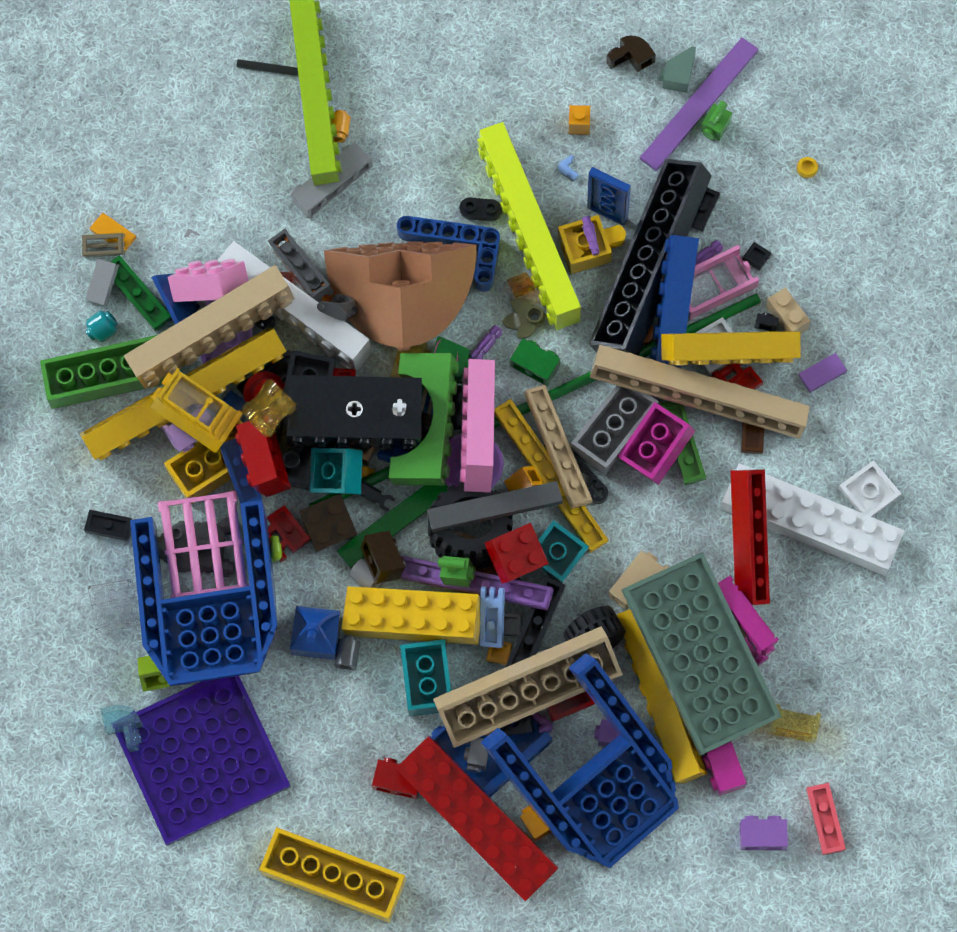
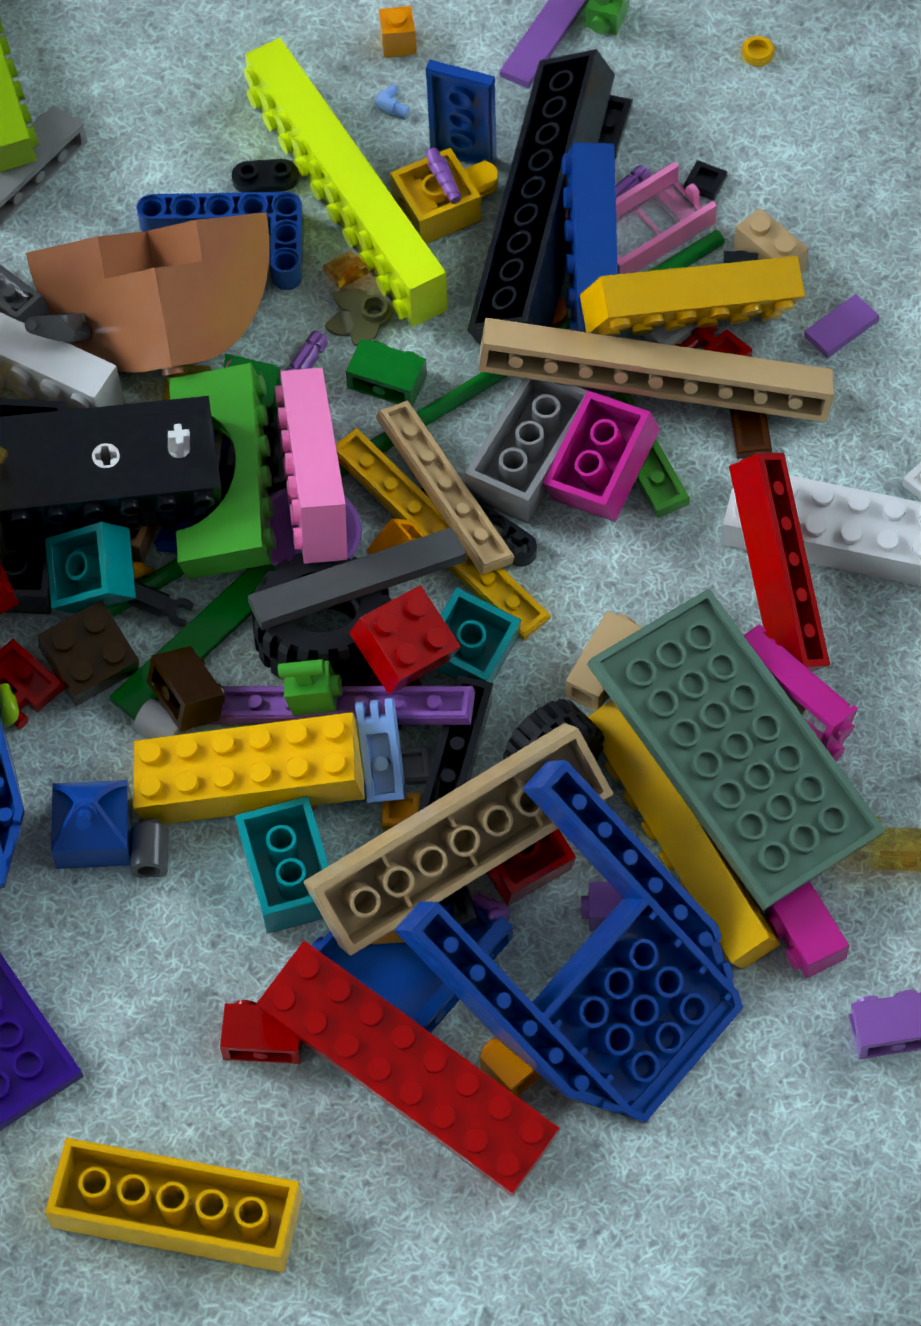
camera: 10 degrees left, 10 degrees down
(342, 123) = (32, 85): light orange brick -> none
(476, 756) = (390, 969): light grey brick -> none

